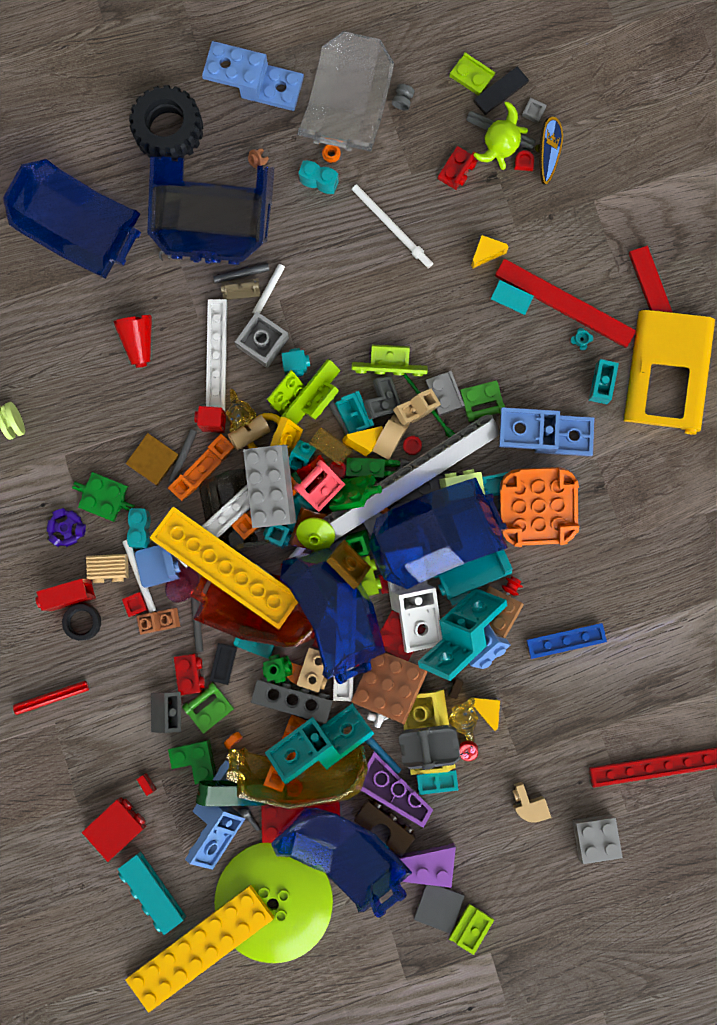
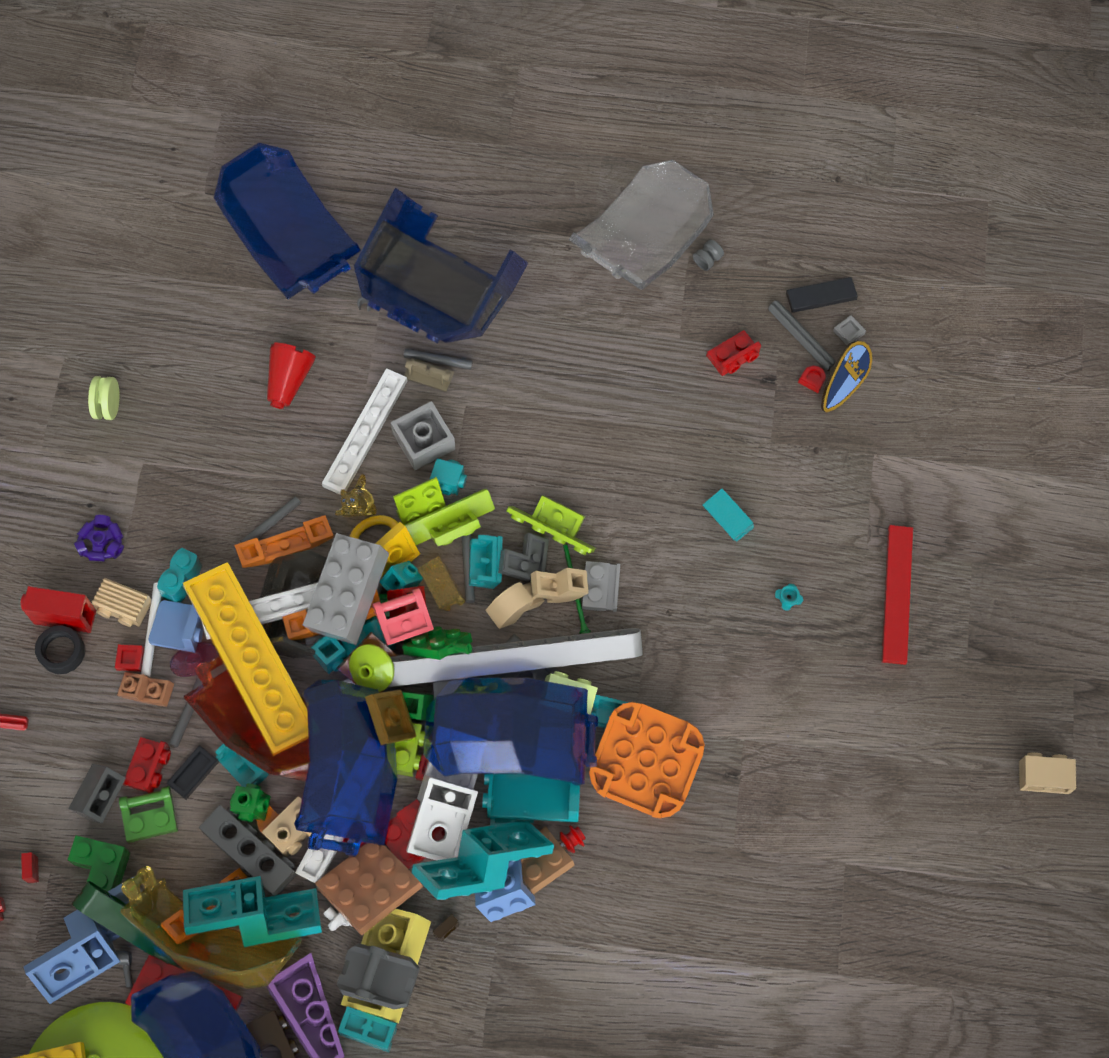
camera: 20 degrees right, 15 degrees down
(103, 496) = (159, 525): green plate -> none
(152, 459) = (235, 510): pearl gold tile -> none
(160, 102) = (437, 149): black tyre -> none
(210, 419) = (321, 493): red brick -> none
(233, 740) = (157, 863): orange tile -> none
(249, 433) = (357, 526): tan pin -> none
(252, 76) = (554, 165): medium blue bracket -> none
(255, 158) = (517, 246): nougat plate -> none
(269, 288) = (461, 387): white bar -> none
(318, 177) = (575, 297): teal brick -> none
(329, 148) = (600, 273): orange plate -> none
(339, 470) = (437, 615): red tile -> none
(363, 440) = (479, 592): yellow slope -> none
(366, 466) = (480, 630): green hinge -> none
(383, 755) = (320, 965): dark azure bar -> none
(412, 445) = (535, 627): red tile -> none
(417, 251) = (644, 420): white bar -> none
(464, 718) = (438, 968): clear yellow animal -> none
(468, 750) = (424, 1011): tile -> none
(472, 74) = (797, 264): lime plate -> none
(482, 395) = (641, 607): bright green plate -> none
(488, 250) = (724, 453): yellow slope -> none
(488, 710) = (472, 971): yellow slope -> none
(502, 138) = (797, 341): lime piece -> none
(546, 432) = (696, 678): medium blue bracket -> none
(565, 303) = (789, 550): red tile -> none
(566, 640) = (606, 934): blue plate -> none
(603, 381) = (790, 653): teal brick -> none
(670, 341) = (898, 648): yellow piece -> none

